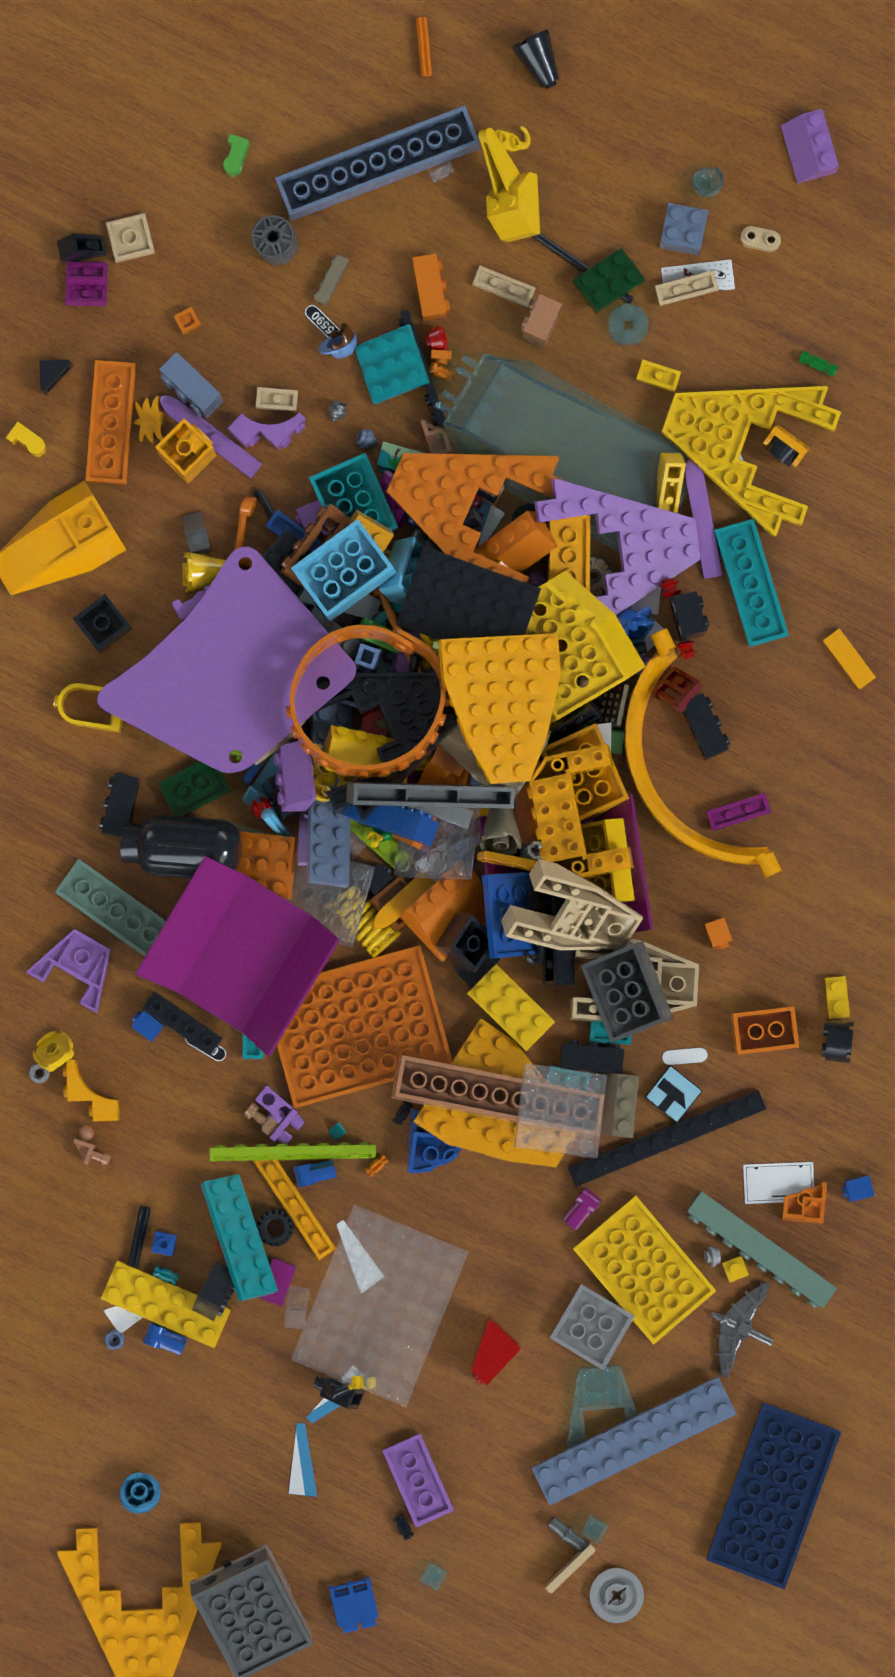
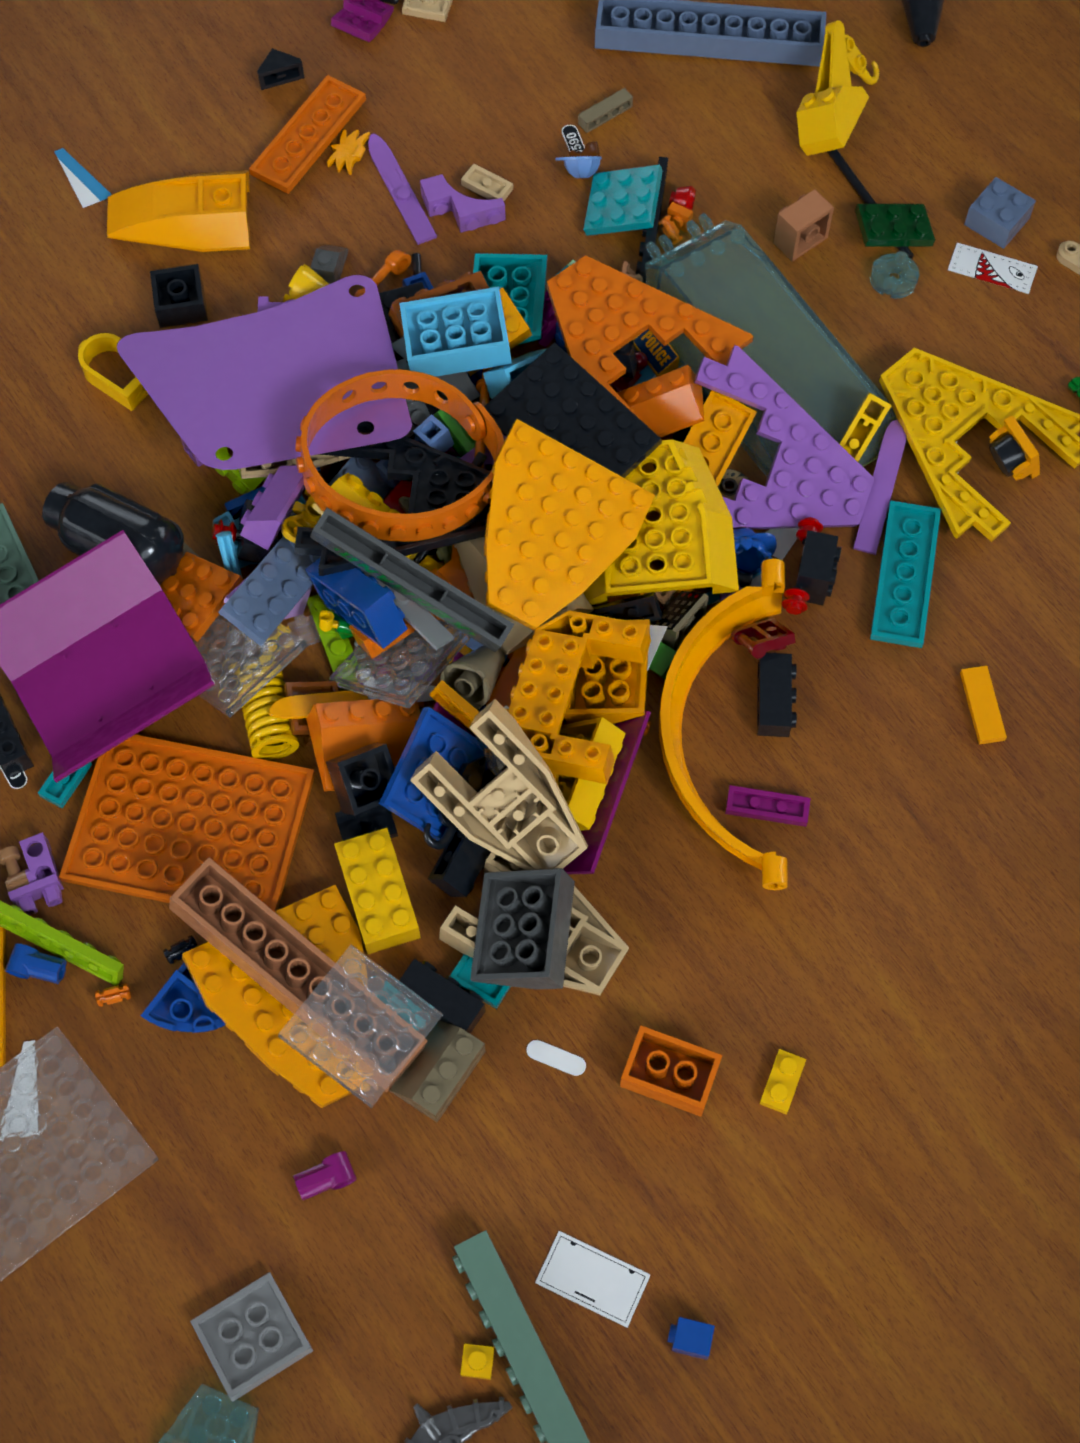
camera: 30 degrees right, 20 degrees down
(28, 439) = (213, 106): yellow leg -> none
(119, 804) = (87, 466): black brick -> none
(186, 450) = (364, 176): light orange brick -> none
(187, 320) = (439, 83): orange plate -> none
(190, 386) = (406, 130): sand blue brick -> none
(193, 788) = (174, 491): dark green plate -> none
(268, 230) = (568, 47): dark grey wheel -> none
(337, 410) = (542, 220): flat silver plate -> none
(337, 1131) = (93, 932): teal piece -> none
(366, 439) = (557, 256): sand blue plate -> none
(380, 878) = (309, 667): black piece -> none
(430, 287) = (703, 154): orange brick -> none
(441, 172) = (771, 68): clear piece -> none
(493, 1352) = (106, 1297): red slope -> none
(503, 286) = (774, 183): tan tile -> none
(644, 1269) = (360, 1299): yellow plate -> none
(658, 375) = (903, 331): yellow plate -> none
(667, 1138) = (480, 1145): black plate -> none
(673, 1094) = (517, 1095): medium azure tile -> none
(686, 288) = (976, 267): tan plate -> none
(708, 182) = (1047, 184): clear light blue hair -> none
(712, 1256) = (456, 1327): light grey plate -> none
(718, 933) = (672, 929): orange brick -> none
(806, 1205) = (612, 1326): orange slope -> none
(838, 1041) = (757, 1130): black brick -> none

